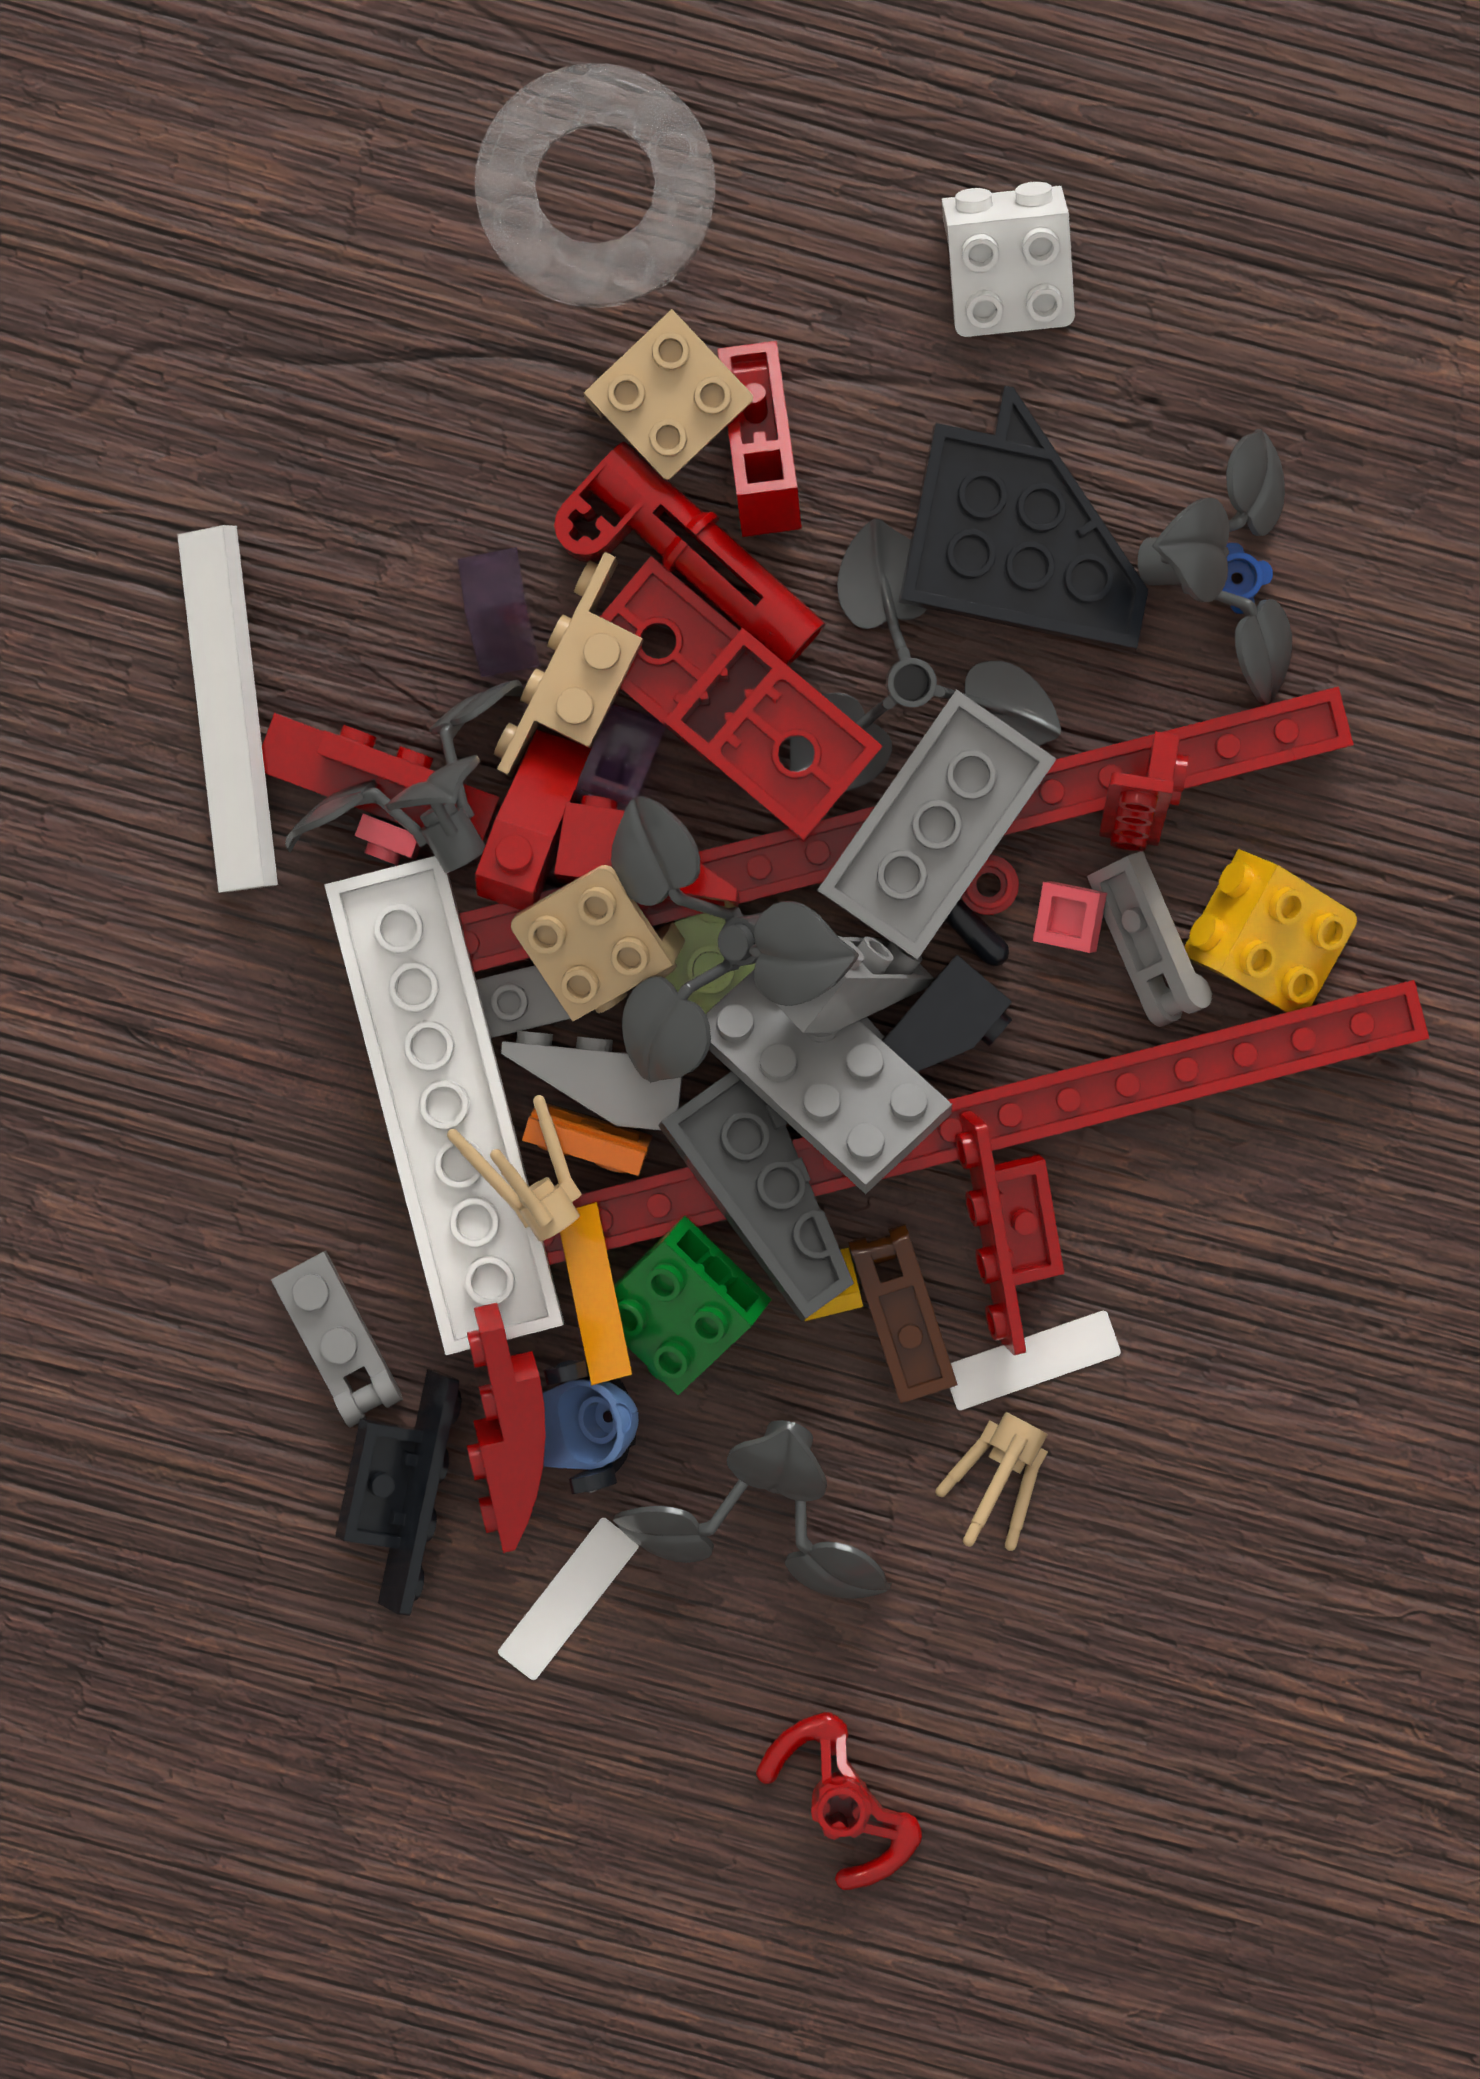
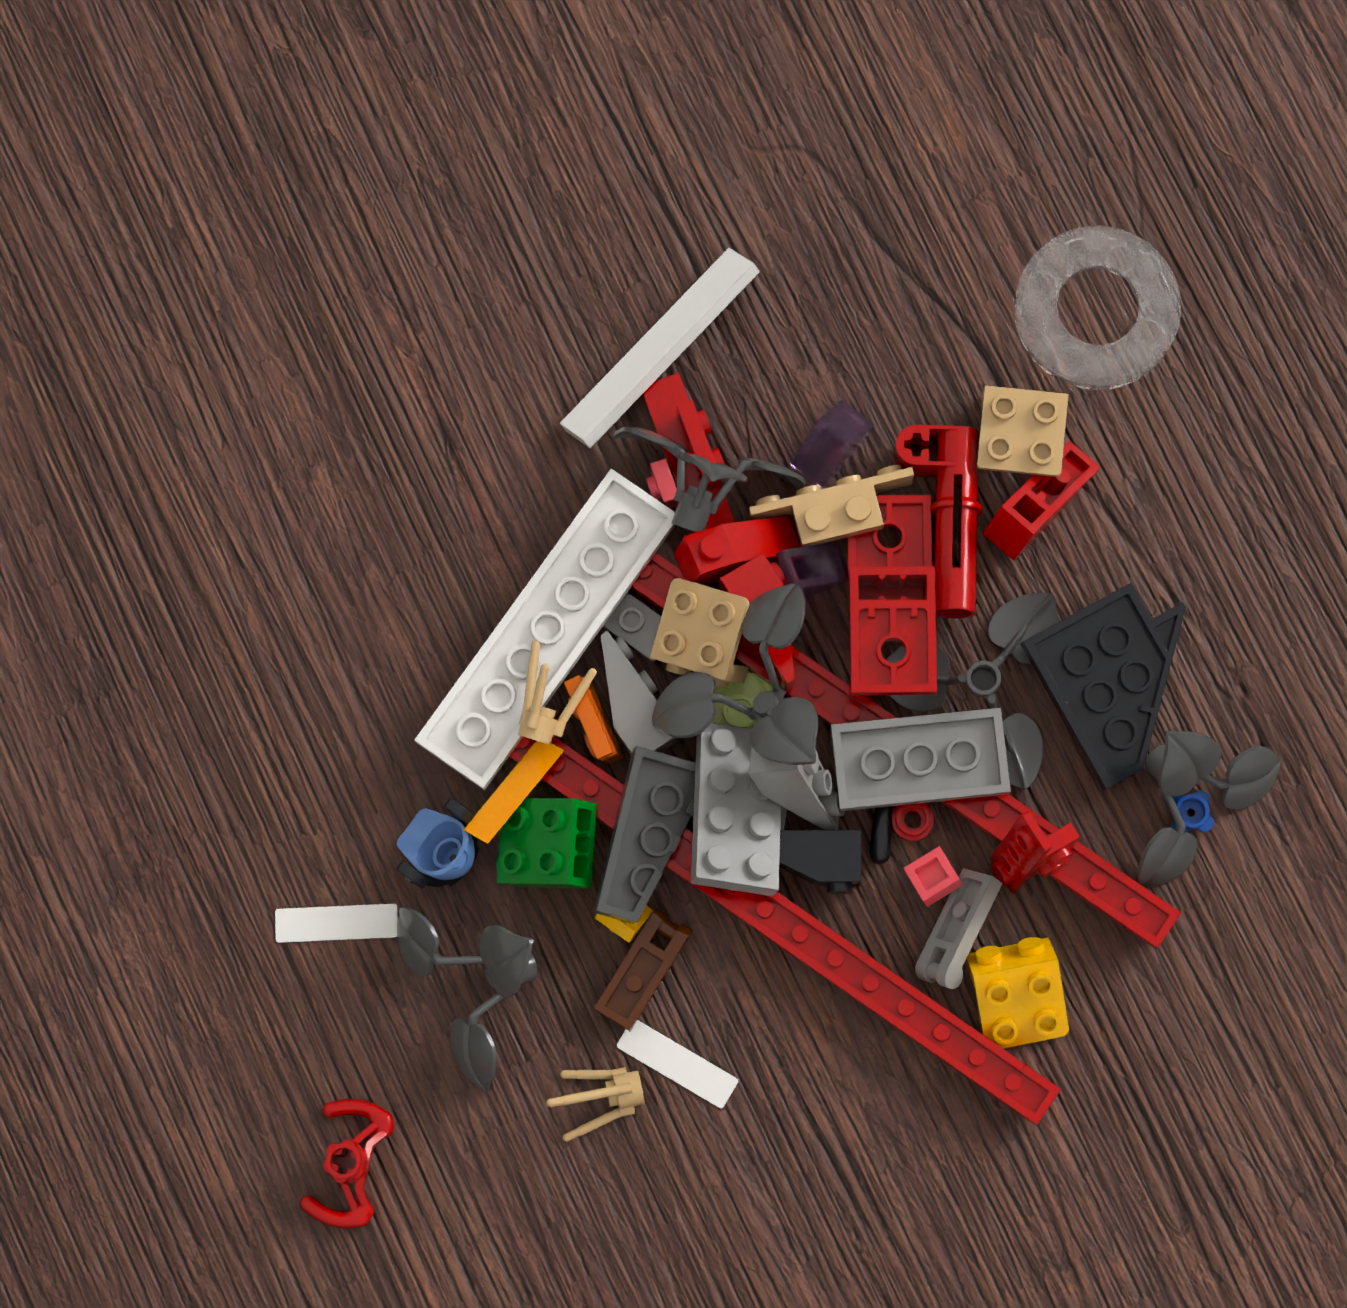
camera: 55 degrees right, 10 degrees down
(336, 1336) = (375, 680): light grey plate -> none
(395, 1488) = (318, 777): black bracket -> none
(510, 1434) = (396, 814): red slope -> none
(1009, 259) = (1249, 549): white bracket -> none
(1015, 1224) = (743, 987): red bracket -> none

